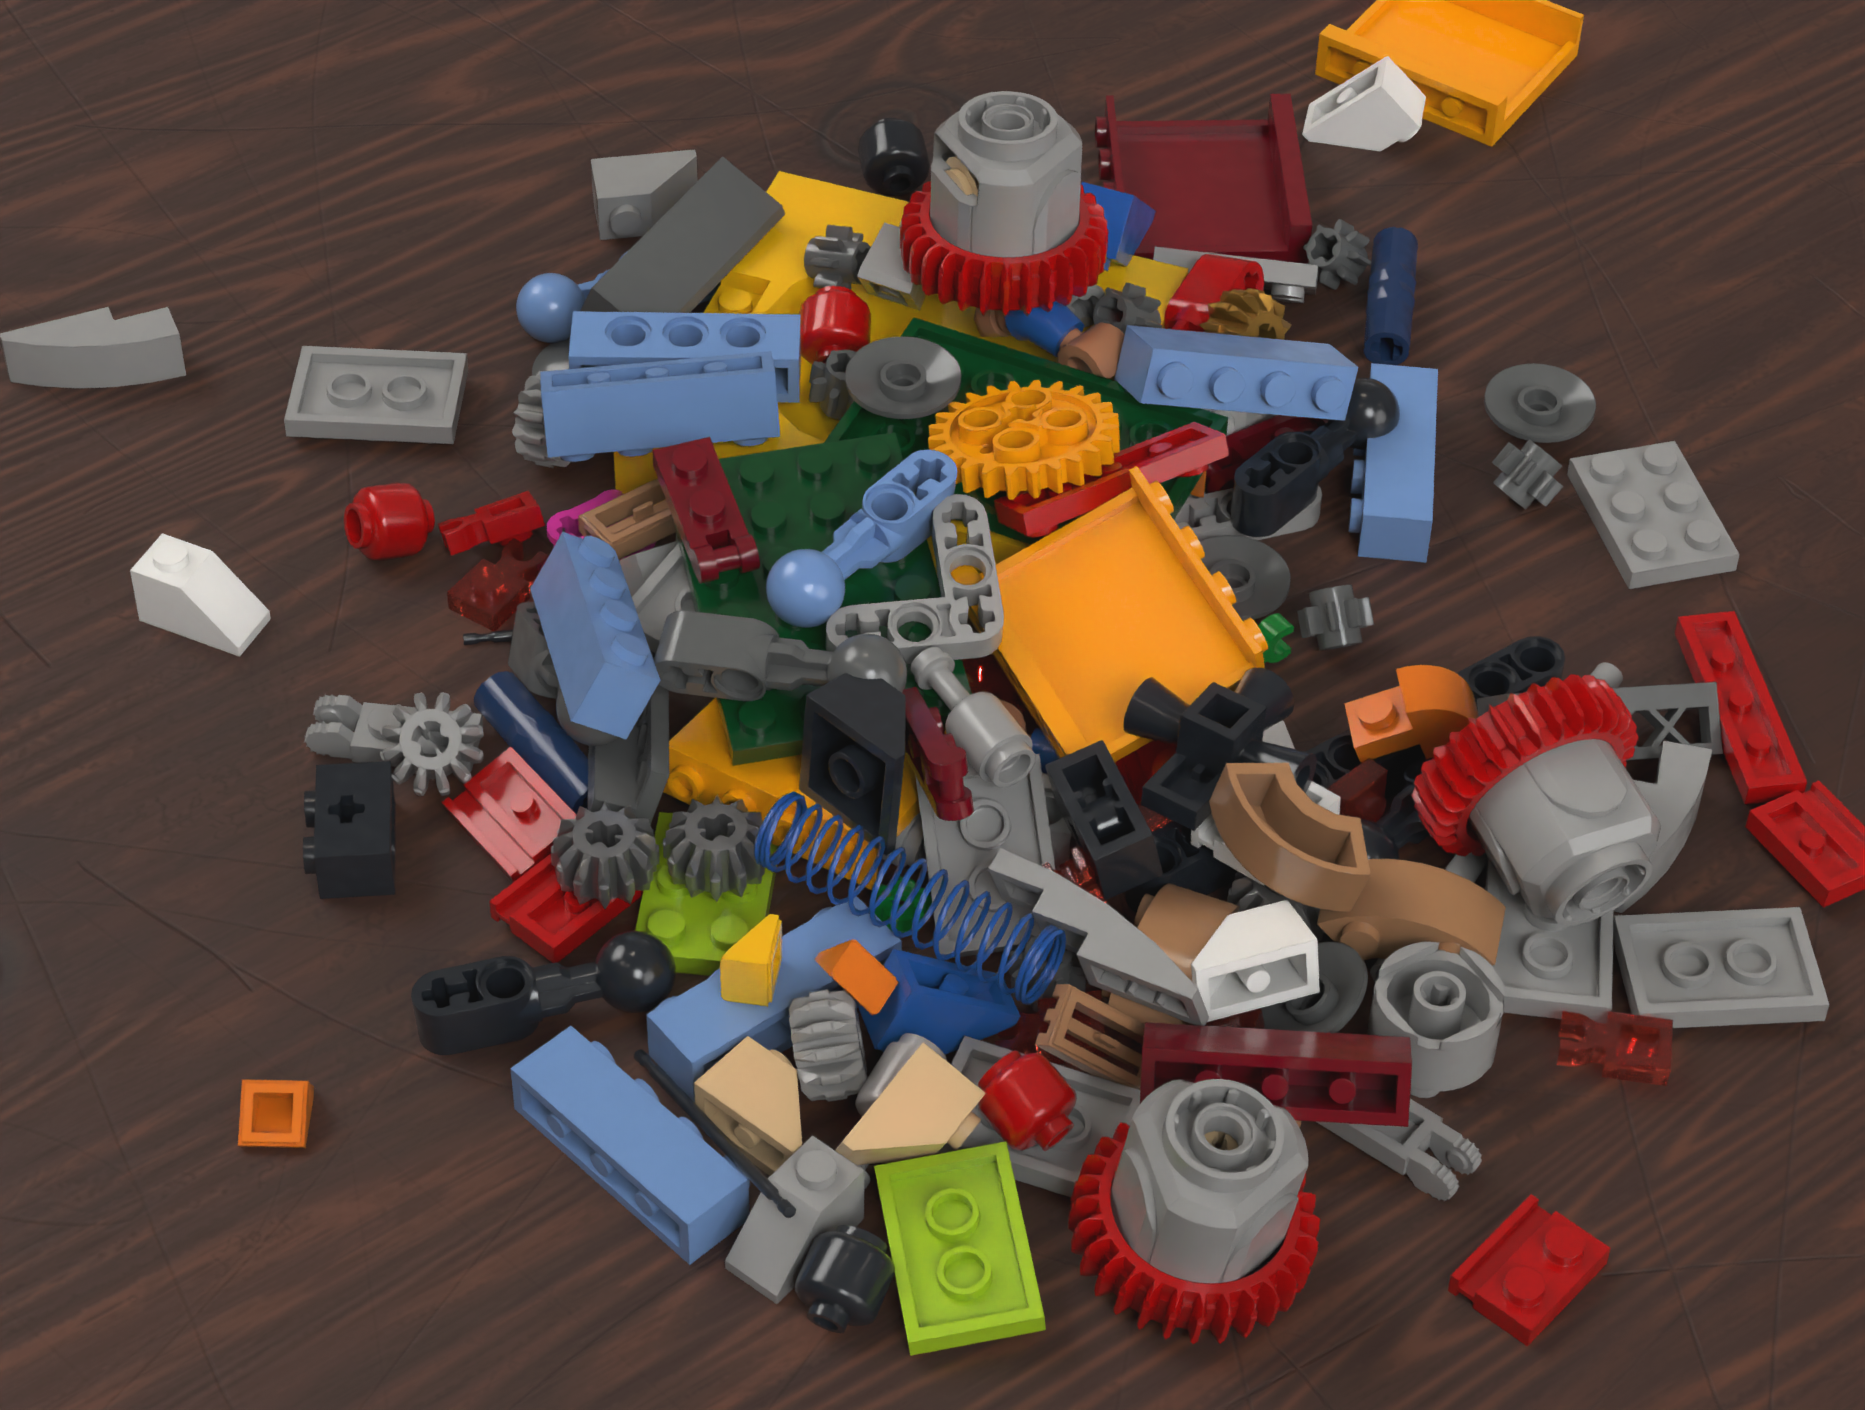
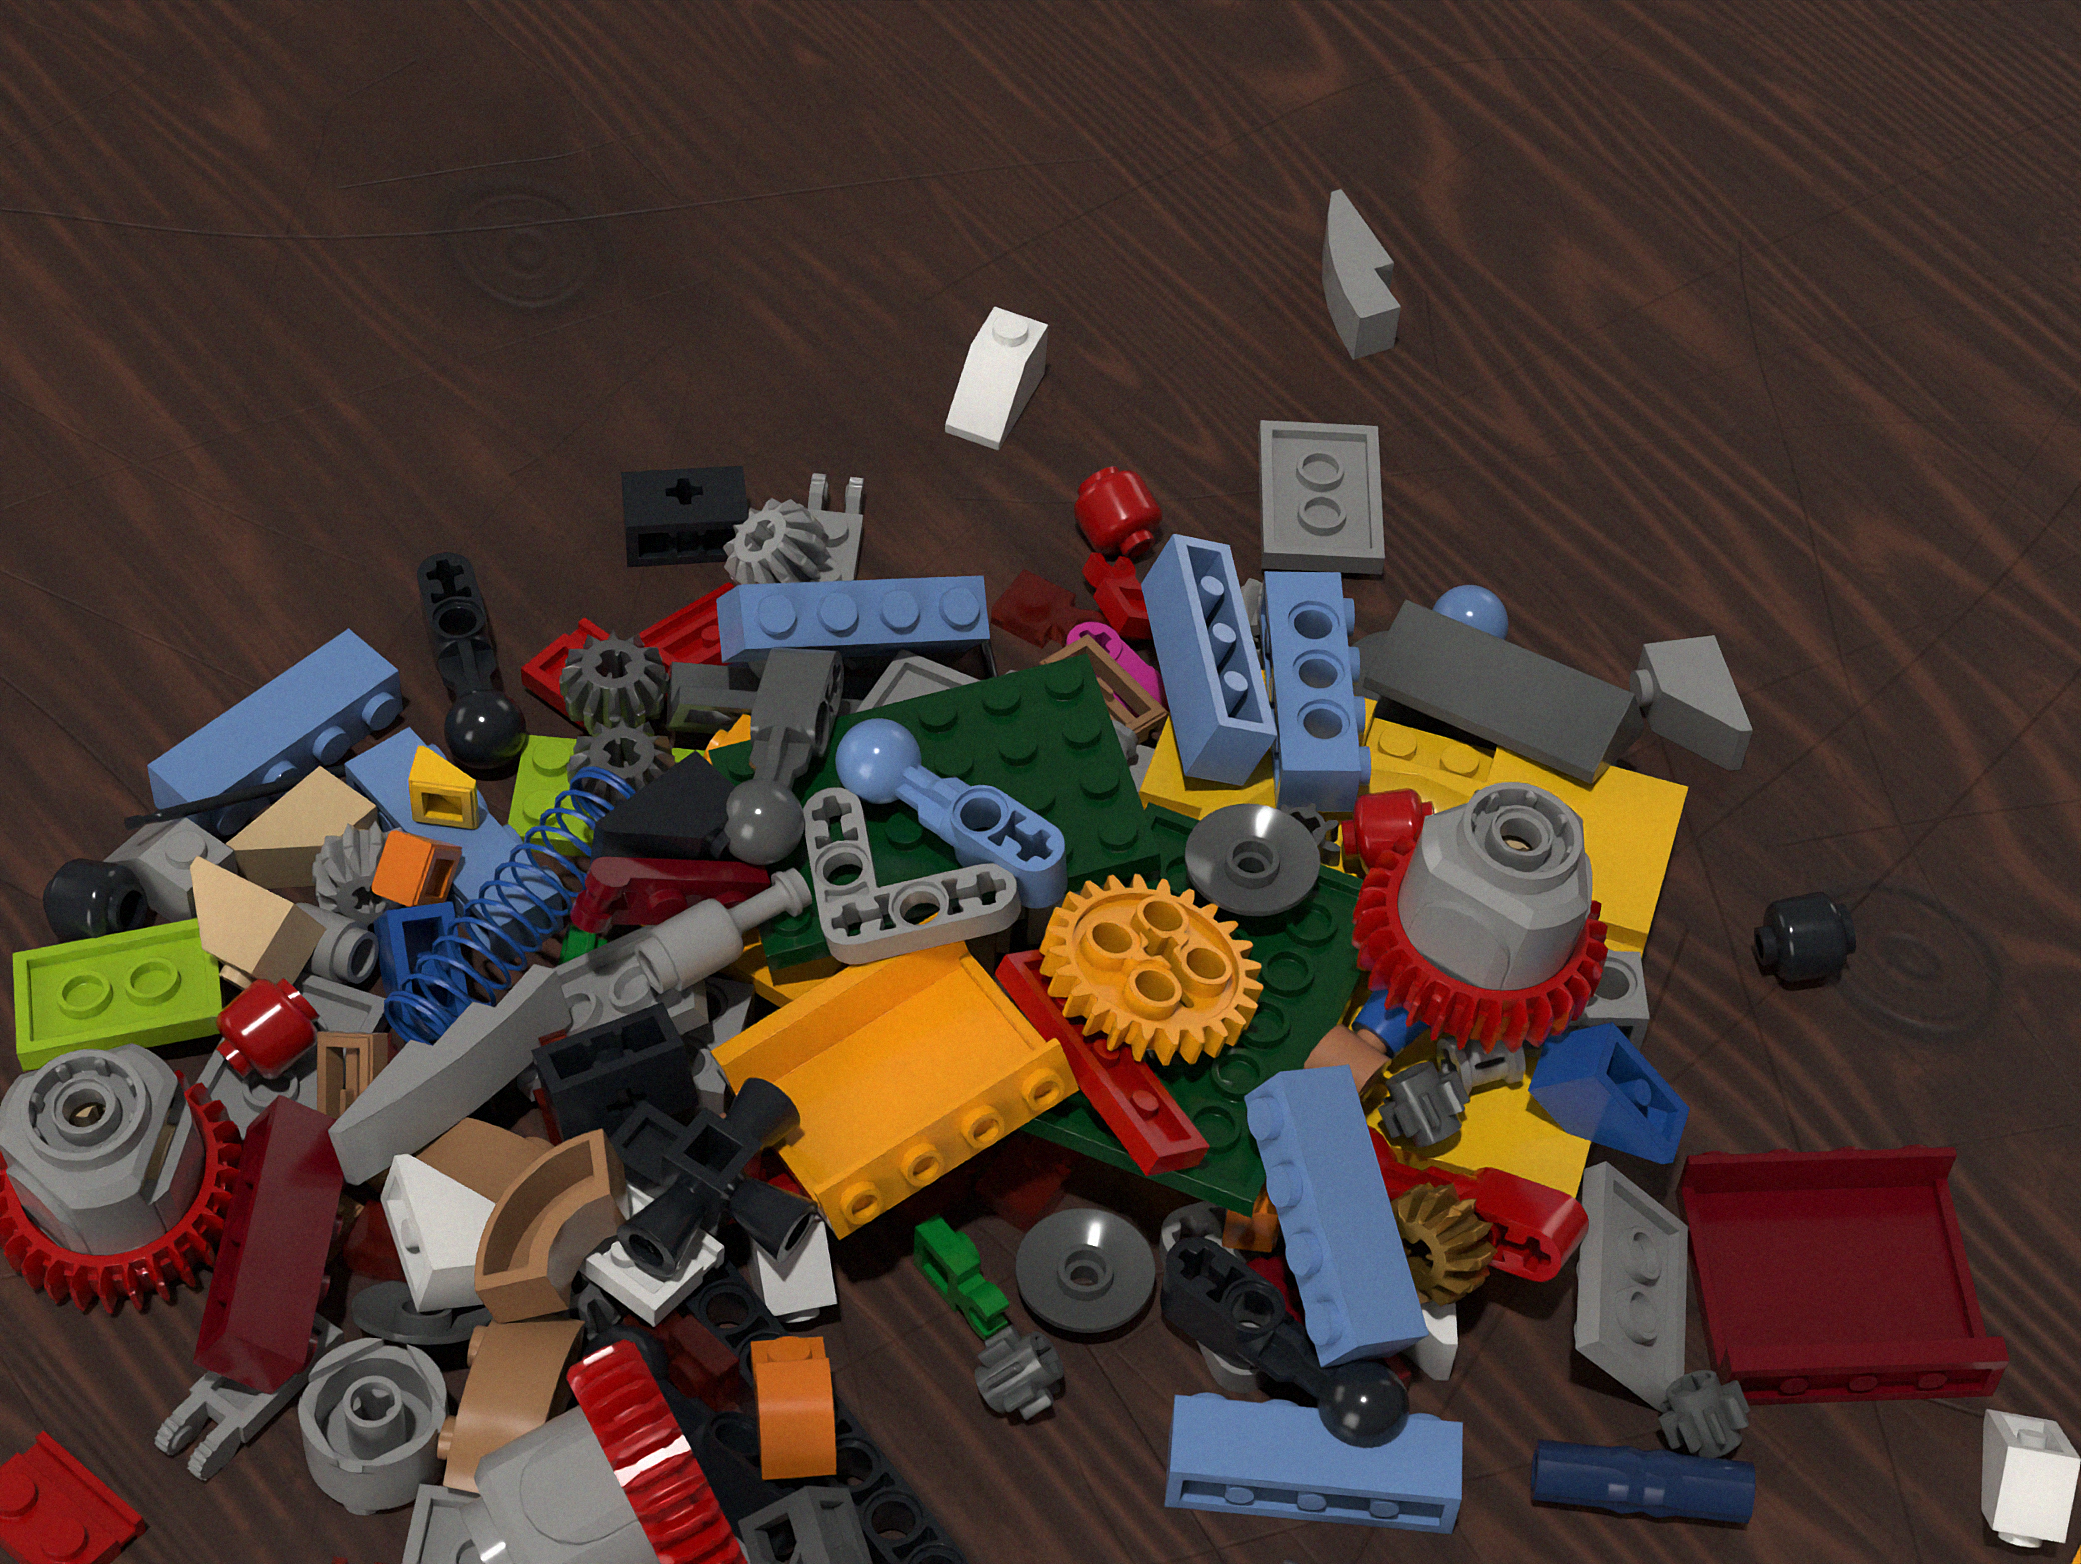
camera: 85 degrees right, 5 degrees up
(275, 1113) = (354, 494): orange slope -> none
(705, 509) = (1003, 681): dark red plate -> none

